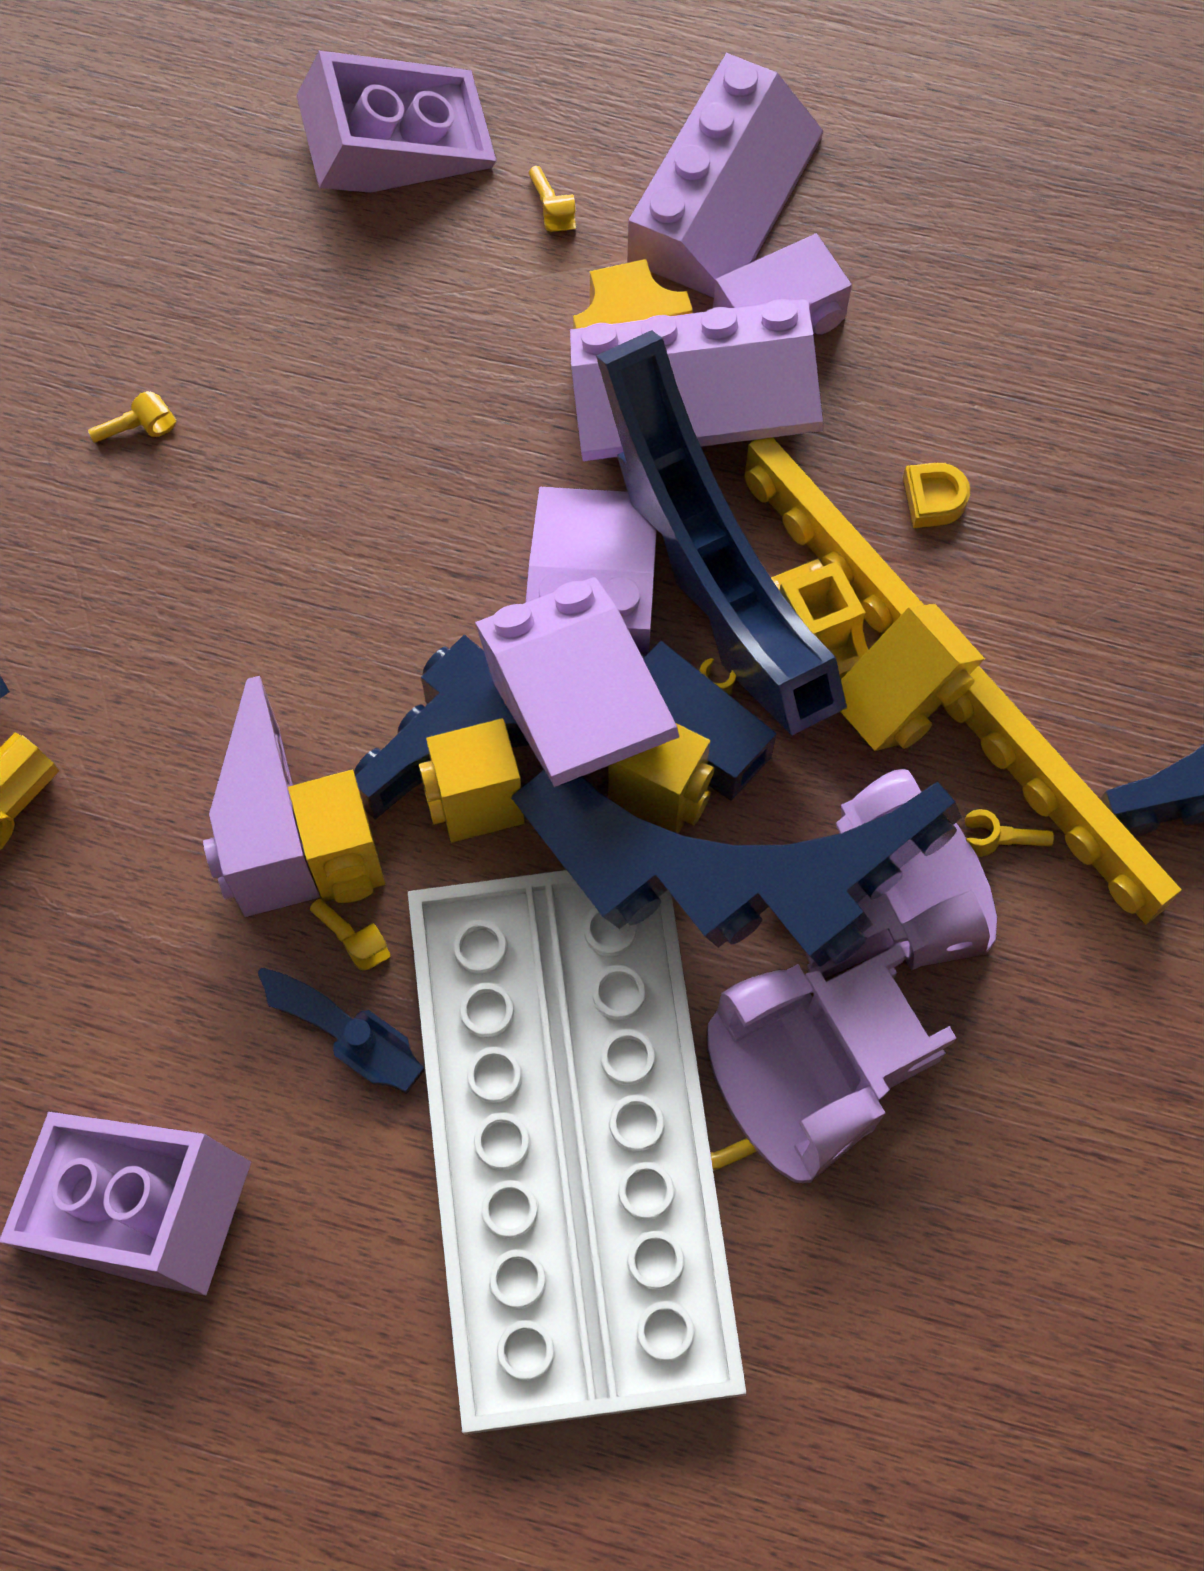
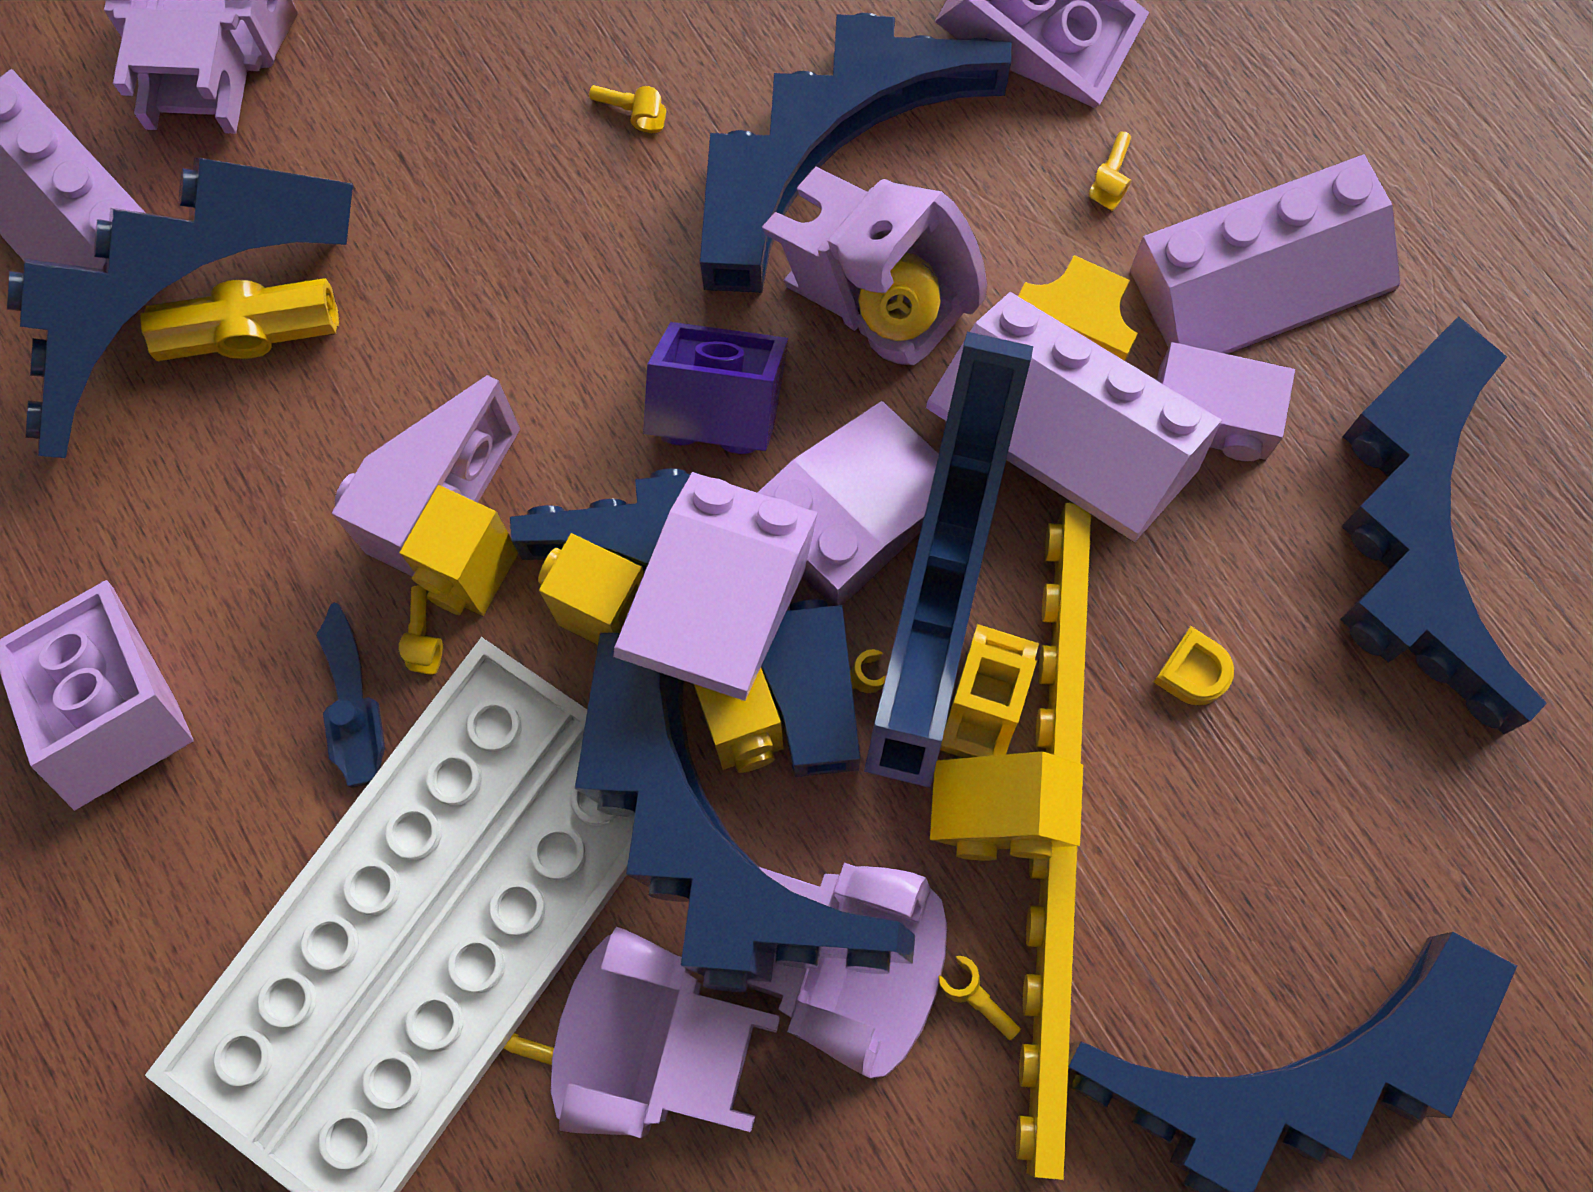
camera: 45 degrees right, 5 degrees up
(290, 326) = (814, 118): none -> dark blue arch
(411, 570) = (714, 387): none -> dark purple slope
(467, 344) = (864, 237): none -> lavender piece
(496, 390) = (896, 318): none -> yellow head
(983, 285) = (1407, 526): none -> dark blue arch

